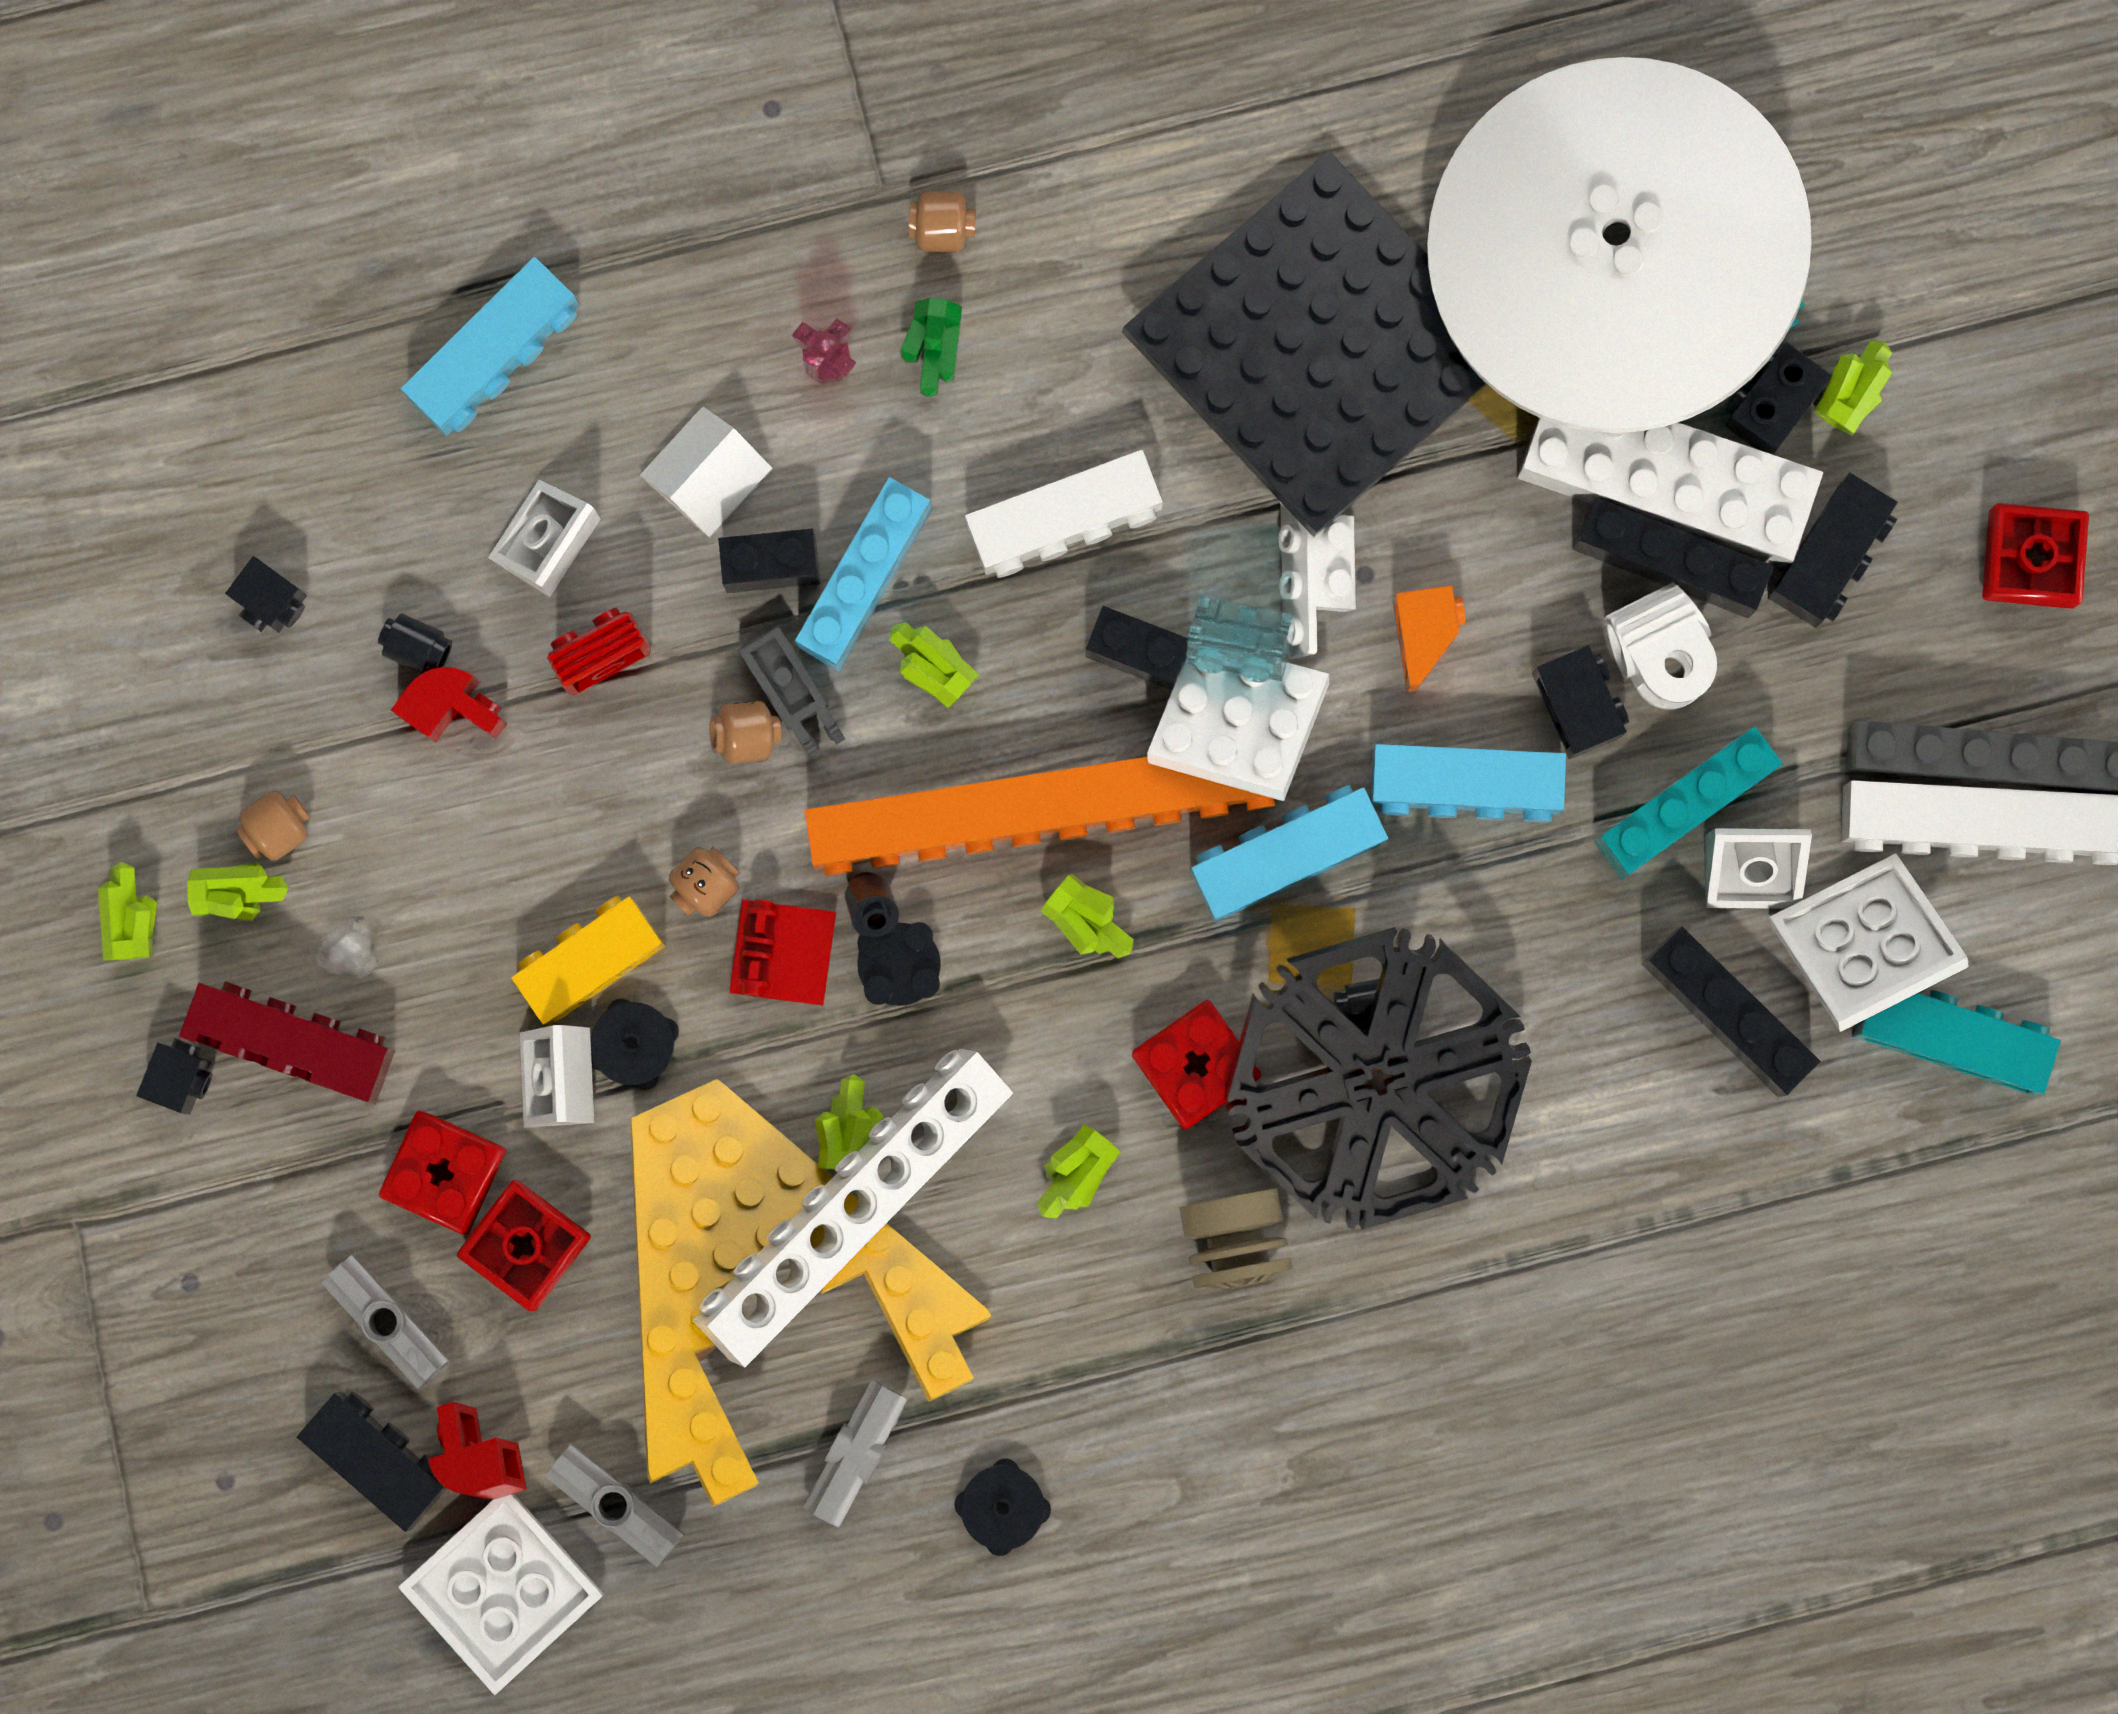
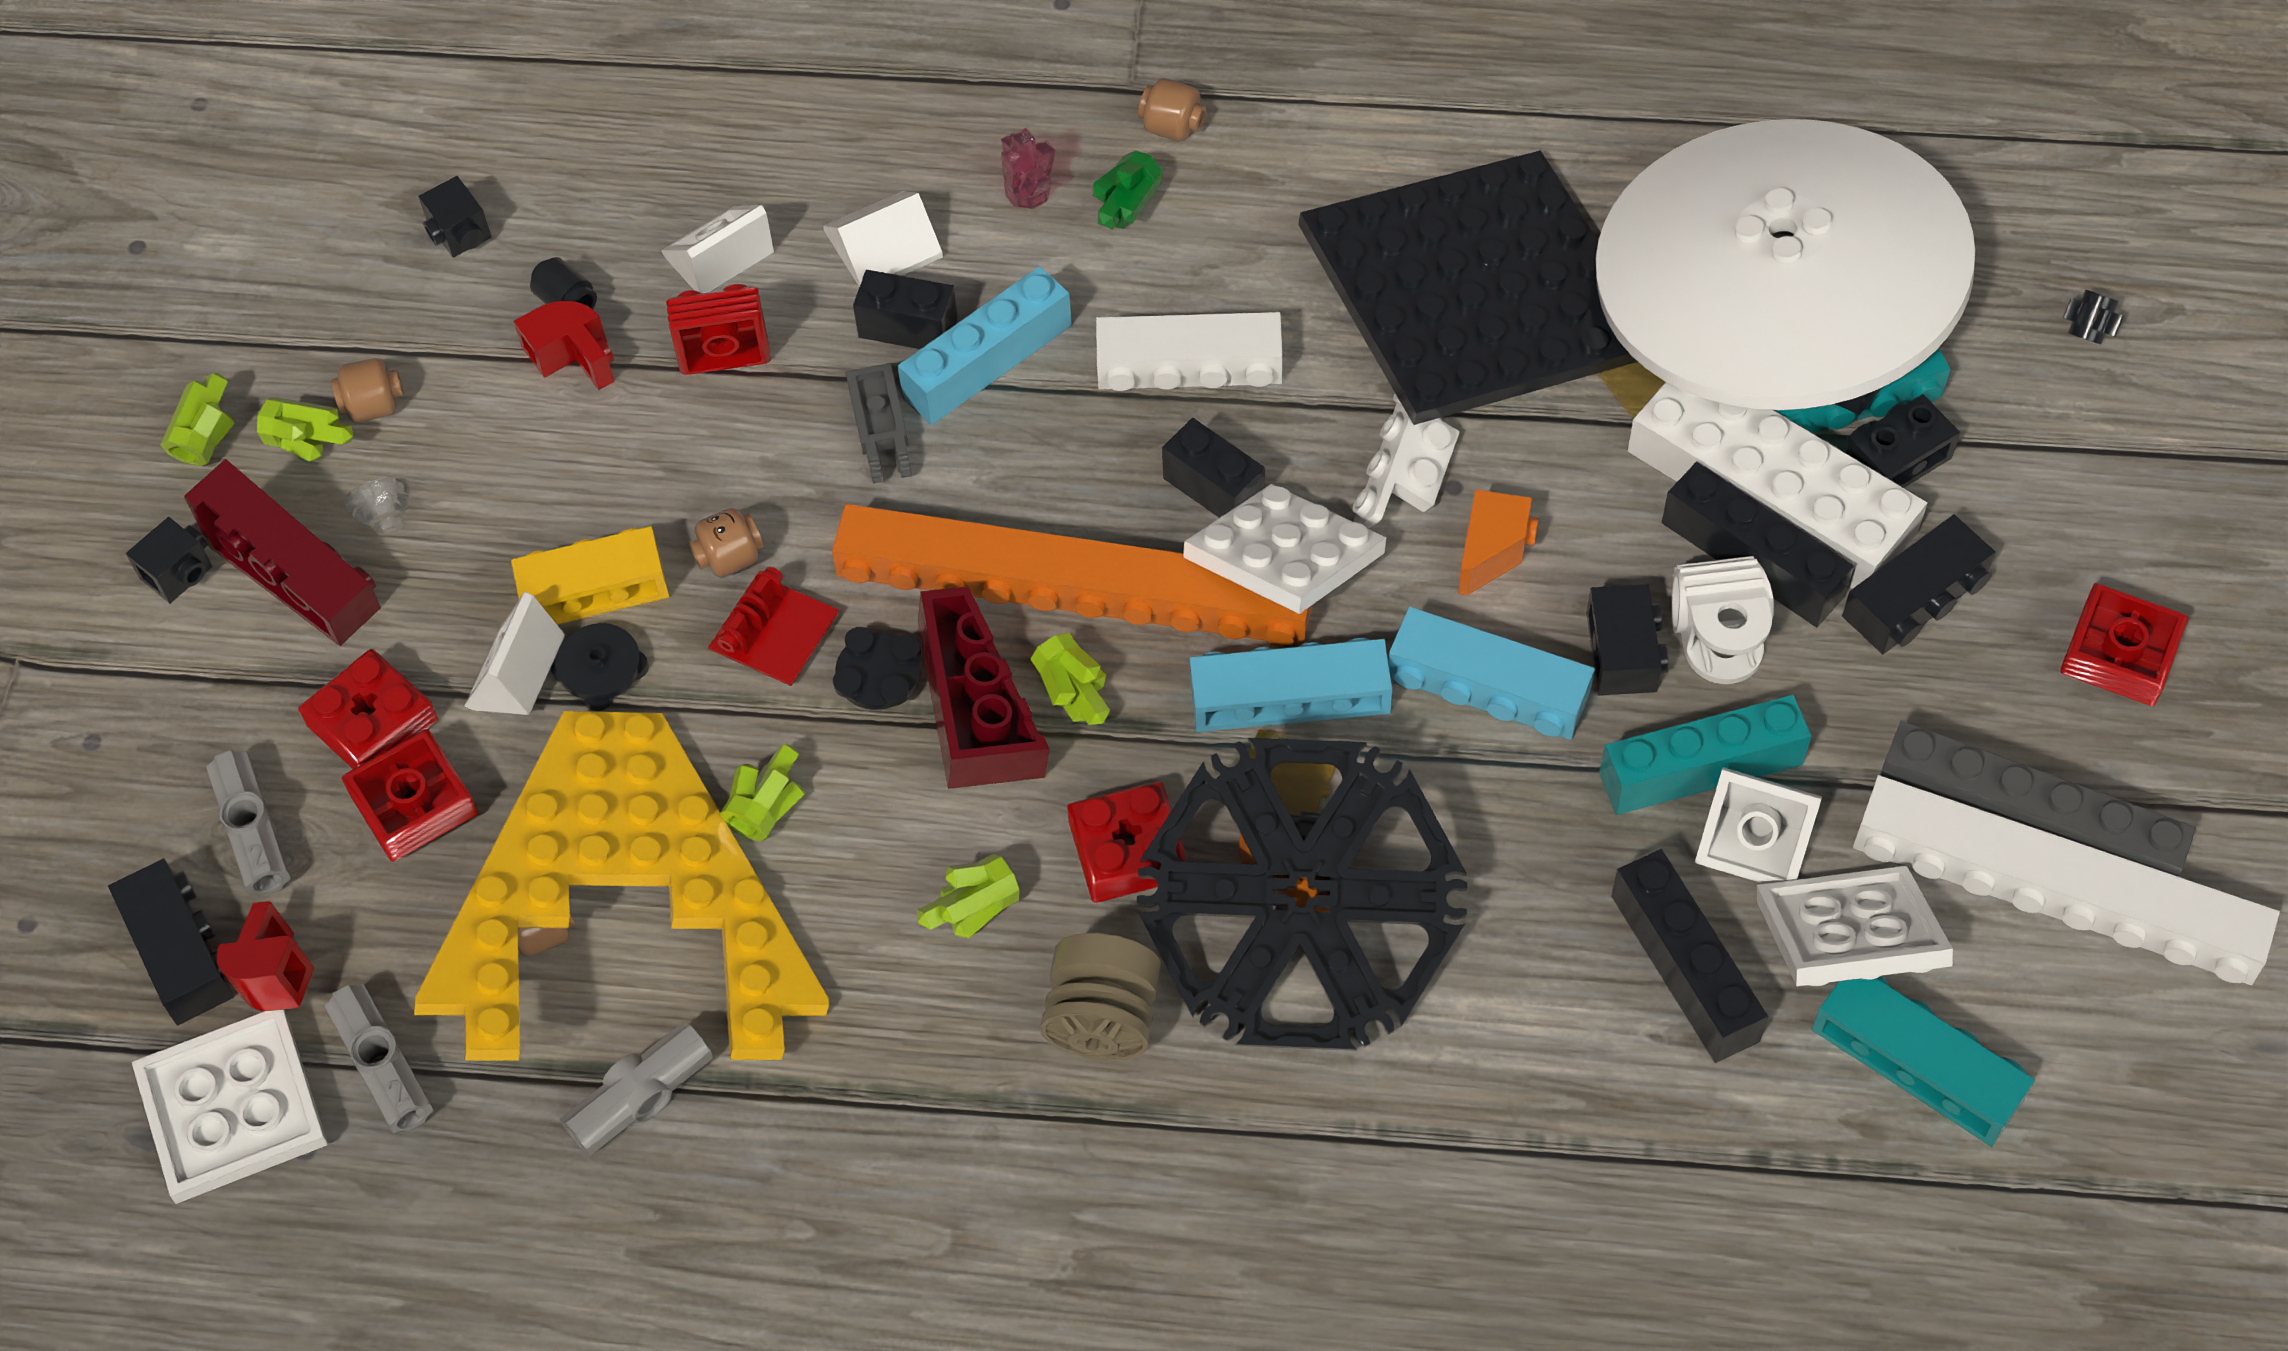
camera: 20 degrees right, 25 degrees down
(491, 347) = (739, 93): medium azure brick -> none
(744, 732) = (821, 437): medium nougat head -> none
(871, 905) = (884, 595): black brick -> none
(932, 663) = (1018, 433): lime rock -> none
(978, 1098) = (567, 907): white brick -> none
(1002, 1507) = (761, 1194): black piece -> none
(1003, 970) = (977, 709): none -> dark red wedge
(1240, 640) = (1311, 478): clear light blue brick -> none
(1855, 387) = (1977, 457): lime rock -> none
(1923, 186) = (2093, 317): none -> black gear

